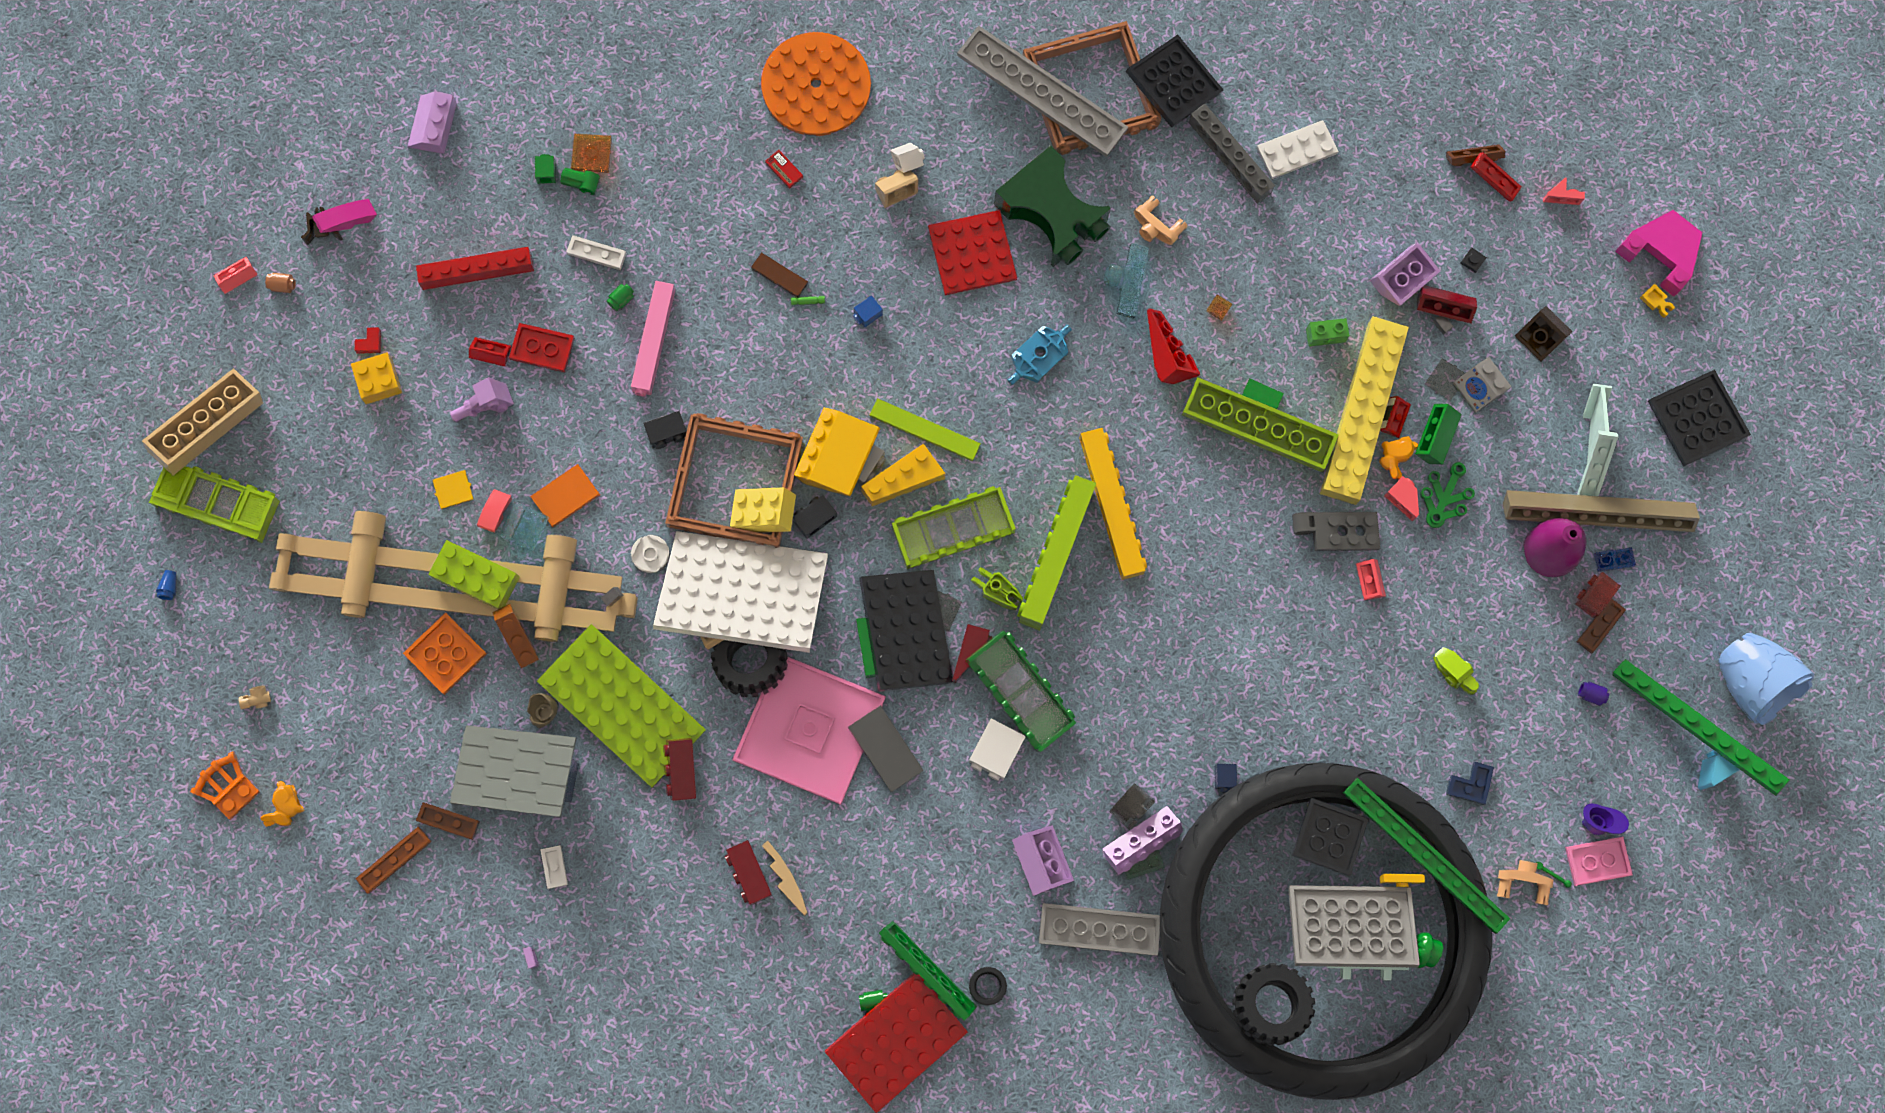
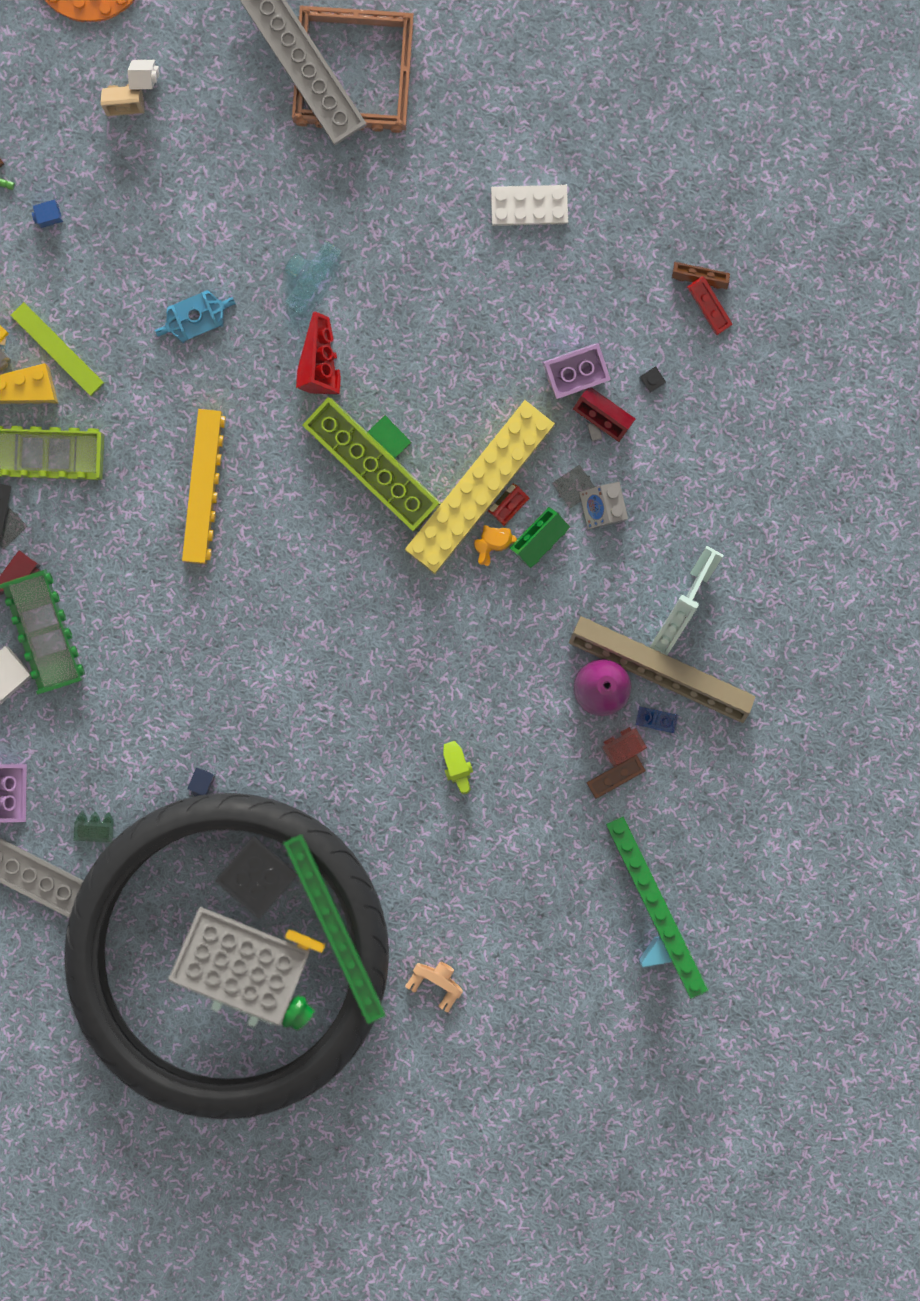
camera: 25 degrees right, 10 degrees up
(784, 169) = (25, 41): tile -> none
(972, 252) = (172, 192): red plate -> none
(997, 589) = (61, 527): lime hinge -> none
(1043, 198) = (257, 159): dark green brick -> none
(1058, 549) = (128, 515): lime brick -> none
(1132, 806) = (100, 776): clear smoke brick -> none
(1143, 840) = (99, 811): lavender brick -> none
(1154, 227) = (354, 232): light nougat connector -> none
(1174, 80) = (434, 92): black plate -> none
(1219, 307) = (385, 335): clear orange plate -> none
(1231, 153) = (460, 185): dark grey brick -> none
(1292, 985) = (109, 999): black tyre -> none
(1325, 533) = (391, 590): dark grey hinge -> none
(1327, 332) = (477, 398): bright green brick -> none
(1370, 579) = (418, 650): coral slope -> none
(1404, 497) = (482, 583): coral slope -> none
(1445, 498) = (520, 600): green plant -> none
(1475, 788) = (428, 881): dark blue plate -> none
(1543, 333) = (687, 477): dark brown slope -> none
(1562, 196) = (764, 346): coral slope -> none
(1567, 883) = (457, 973): green hinge -> none
(1593, 693) = (578, 837): dark purple brick -> none
(1598, 861) = (514, 990): bright pink tile -> none
(1604, 820) = (533, 956): dark purple piece -> none
(1654, 298) = (811, 484): yellow plate -> none
(1671, 242) = (854, 434): dark pink wedge -> none
(1699, 418) = (800, 616): black plate -> none
(1763, 676) = (738, 885): light blue piece -> none

